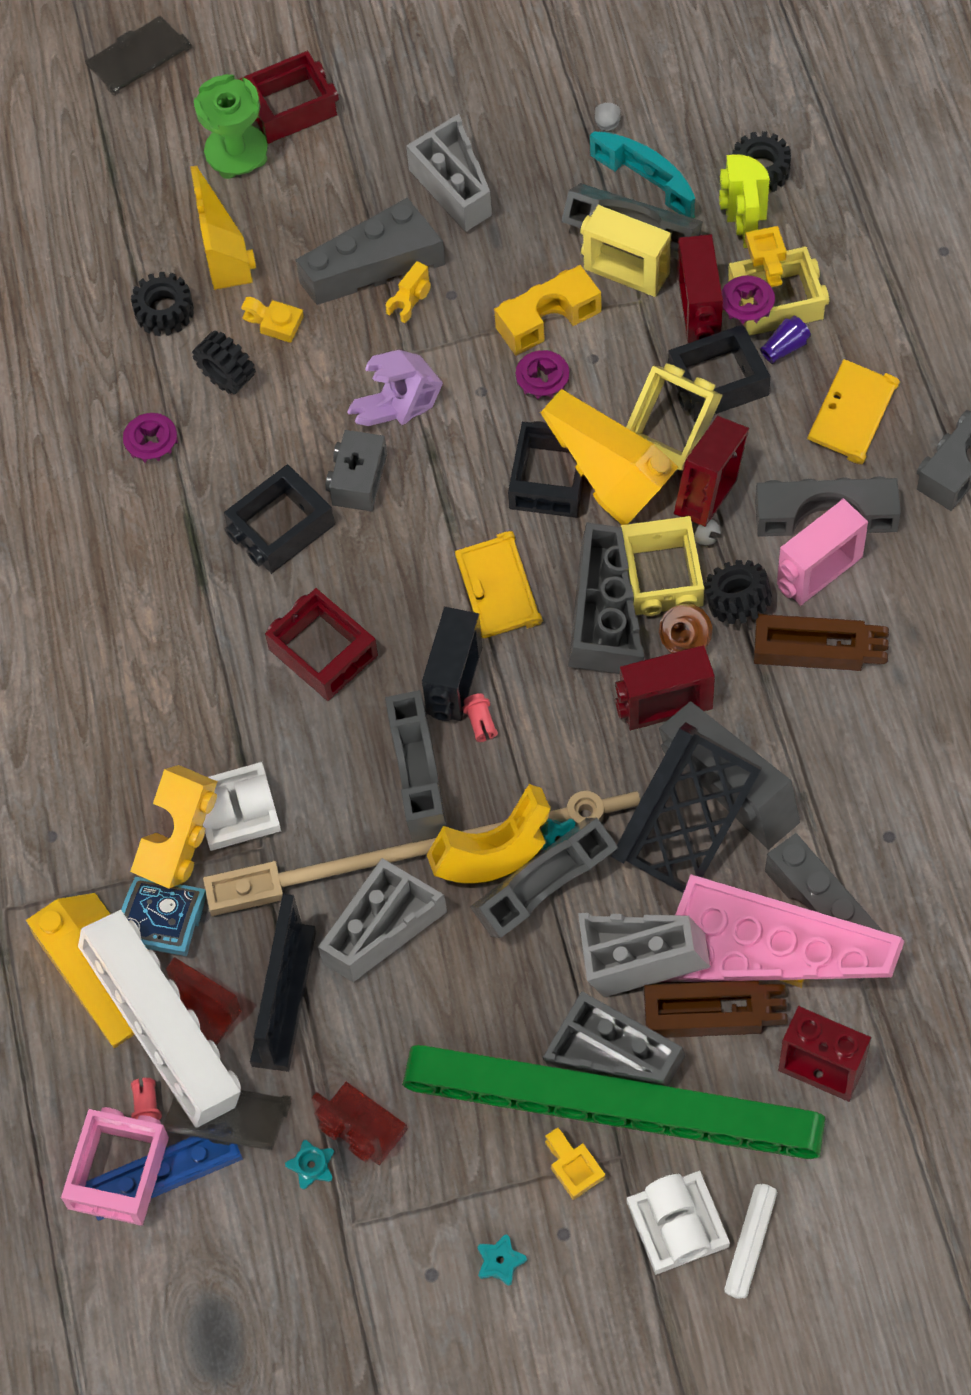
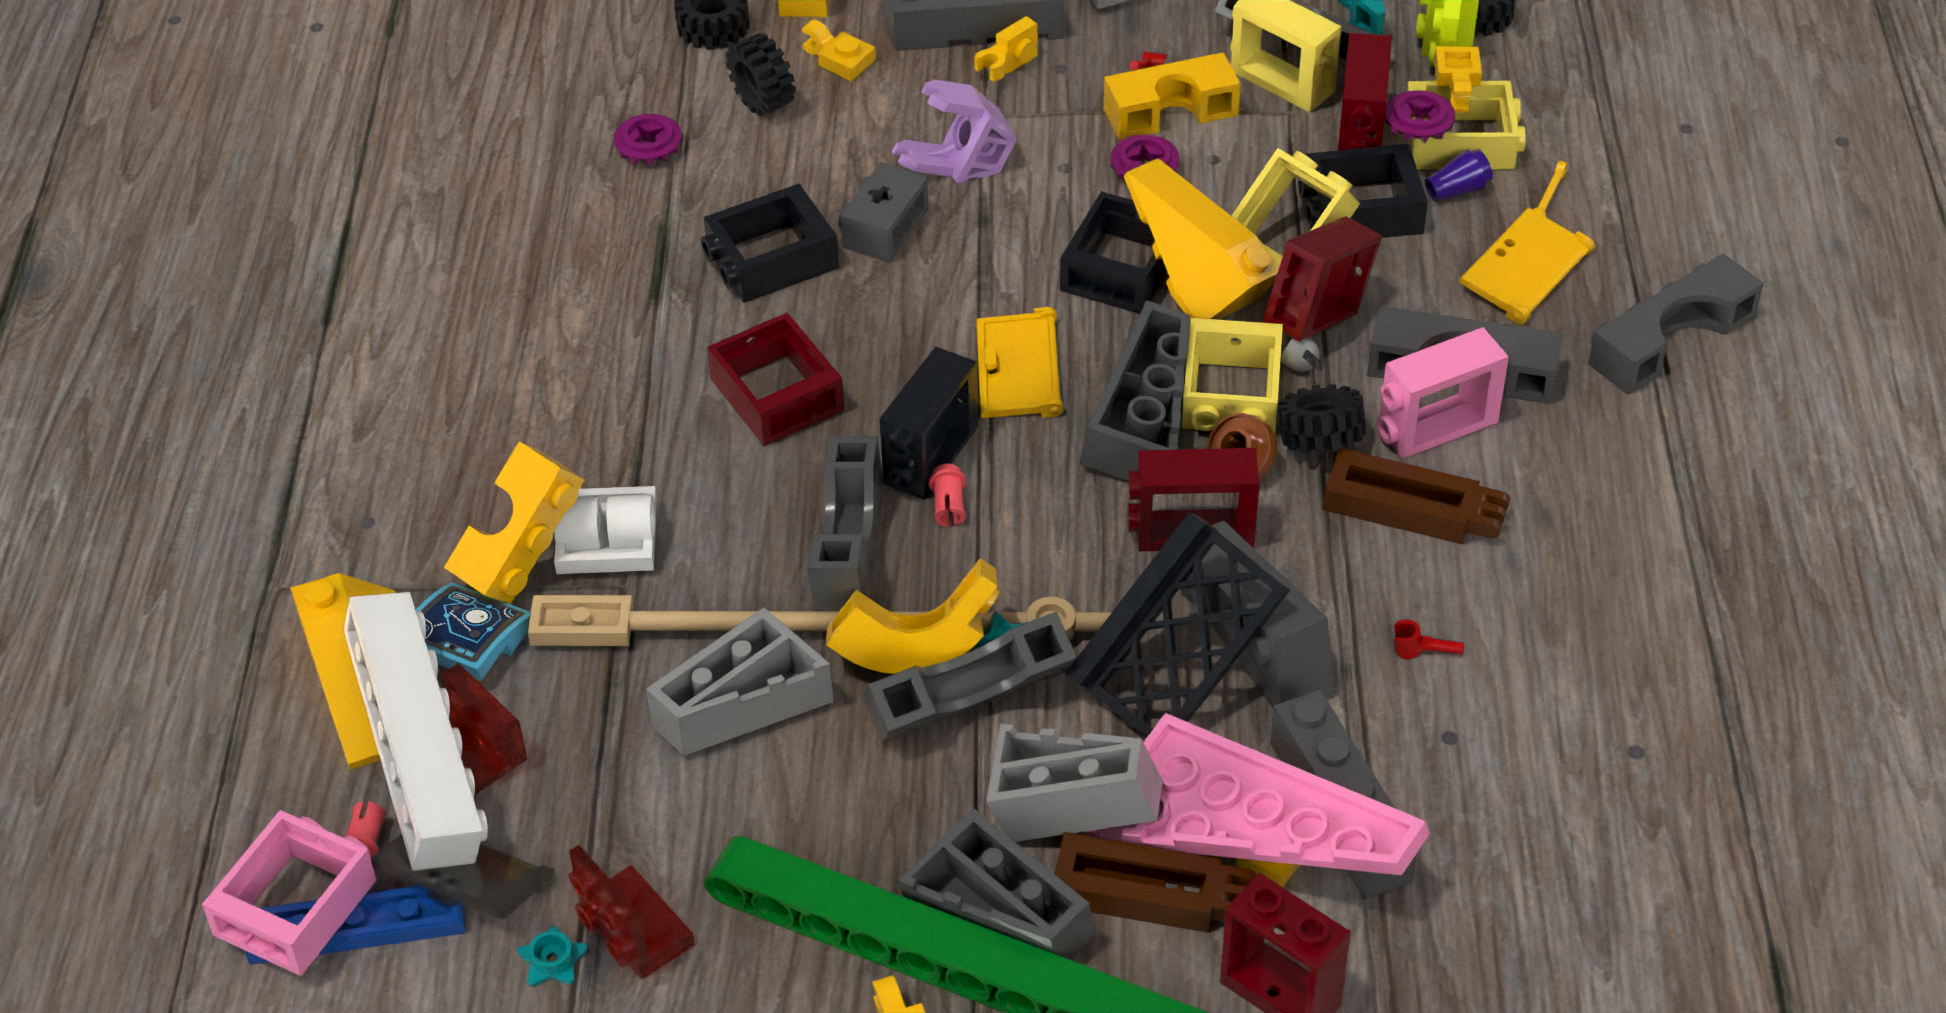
camera: 10 degrees right, 15 degrees down
(283, 989) = (583, 731): black fence -> none
(524, 281) = (1148, 60): none -> red hand
(852, 764) = (1410, 643): none -> red hand
(855, 335) = (1559, 174): none -> yellow hinge

